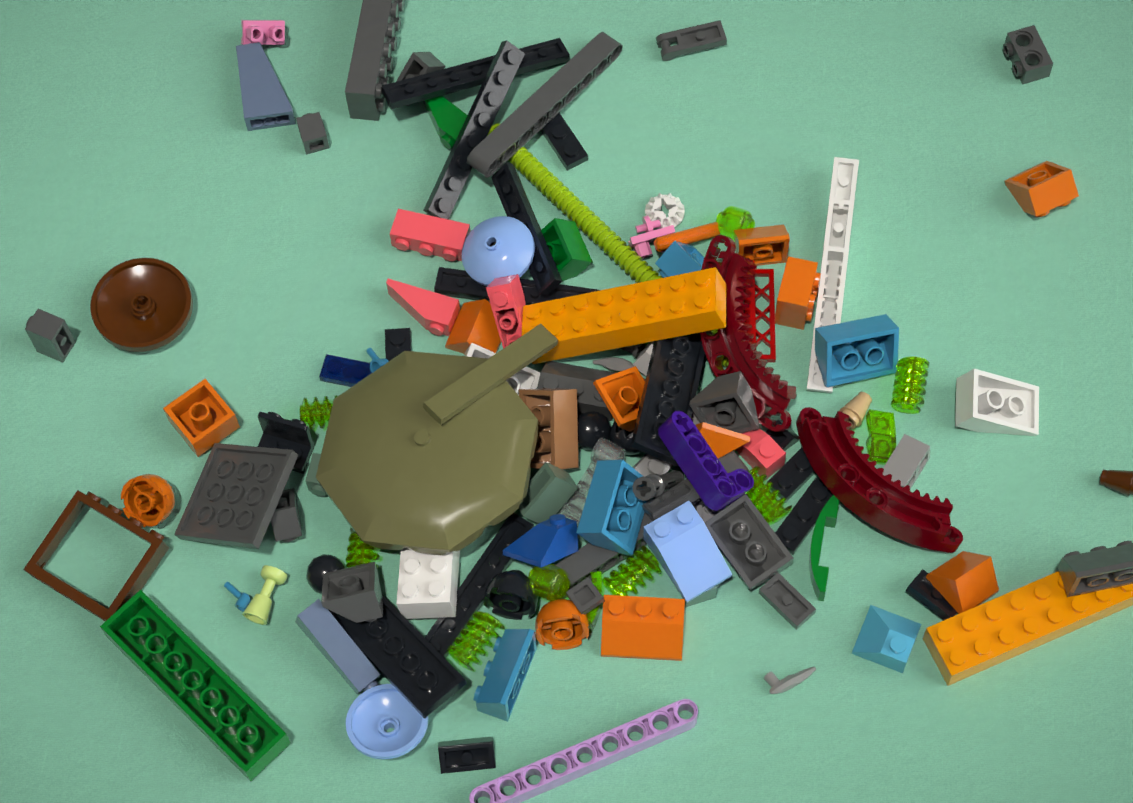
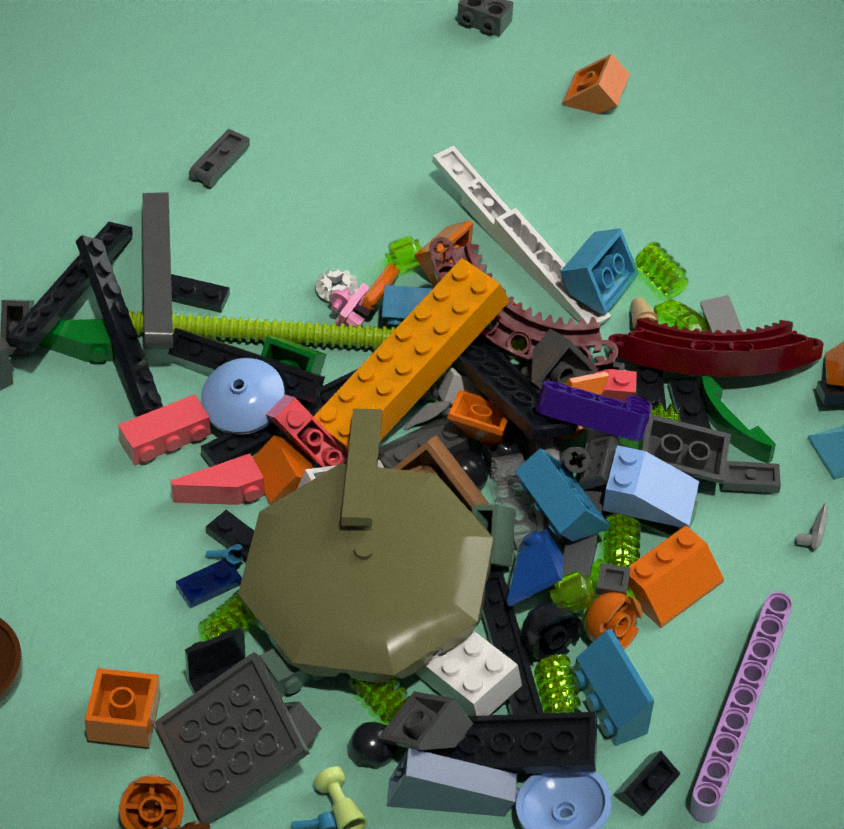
camera: 50 degrees left, 15 degrees down
(797, 293) = (513, 262): orange brick -> none
(996, 404) = (732, 242): white slope -> none

